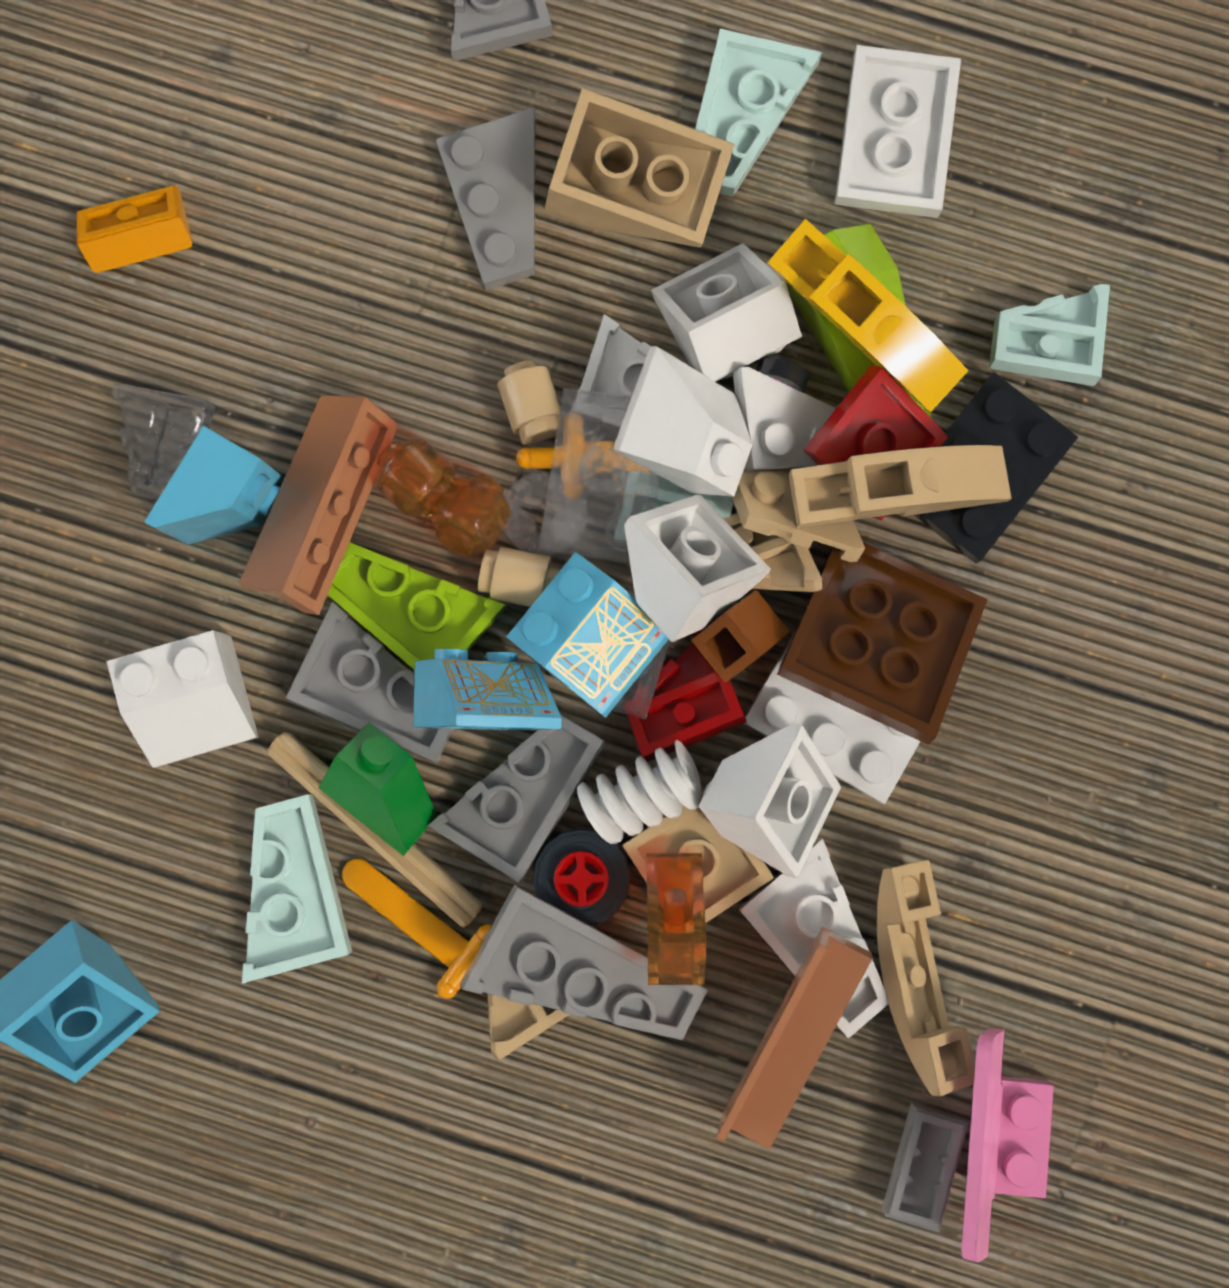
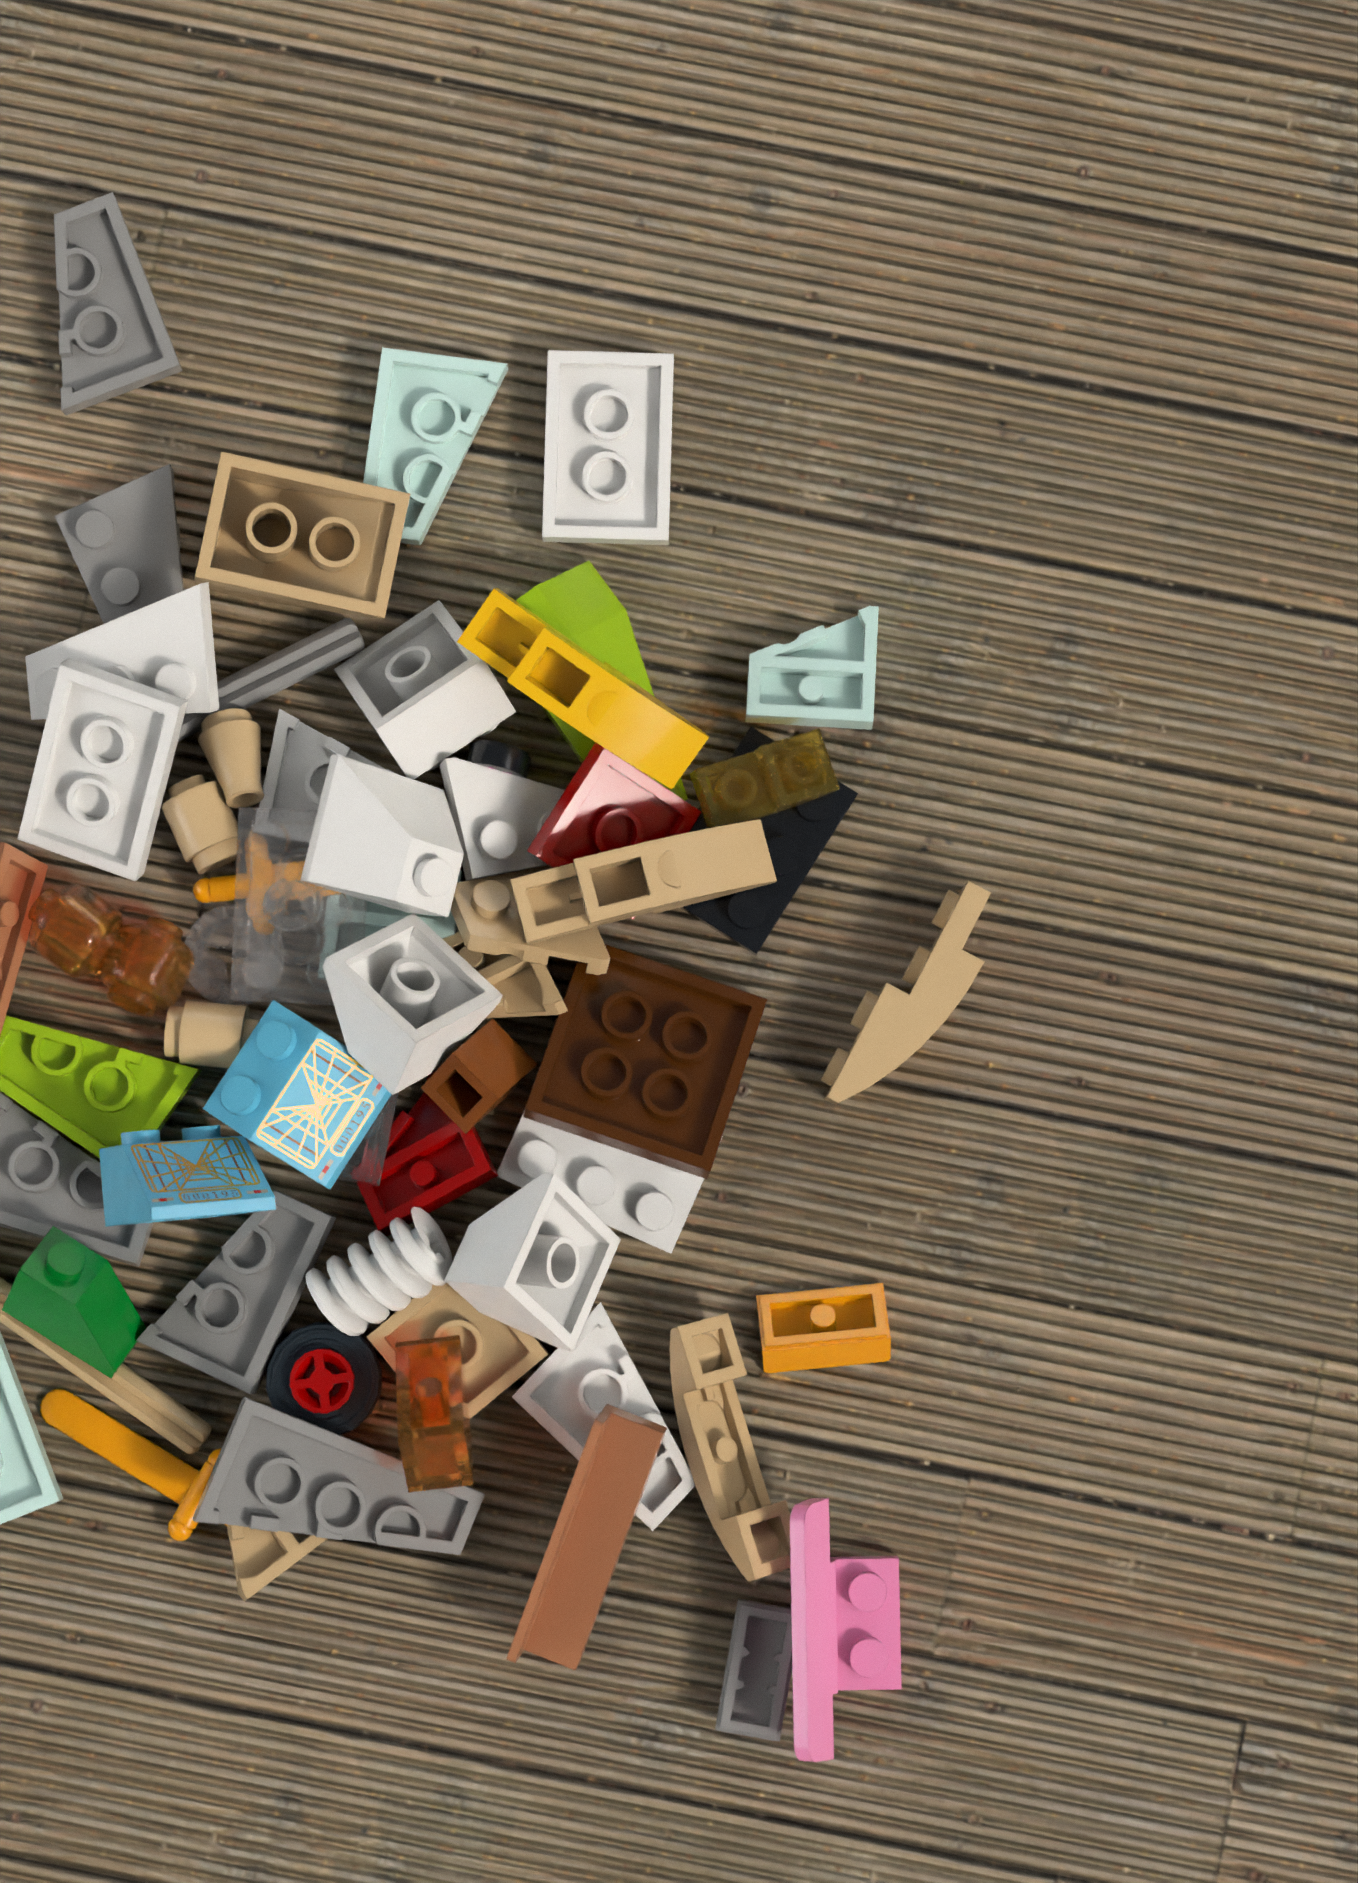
camera: 15 degrees left, 0 degrees up
(452, 344) = (102, 769): none -> white plate
(486, 262) = (157, 645): none -> white wing
(562, 346) = (234, 753): none -> tan cone
(578, 295) = (282, 670): none -> light grey axle
(1006, 881) = (823, 1328): none -> light orange slope
(1008, 415) = (765, 780): none -> clear yellow slope
(1101, 629) = (902, 1022): none -> tan slope

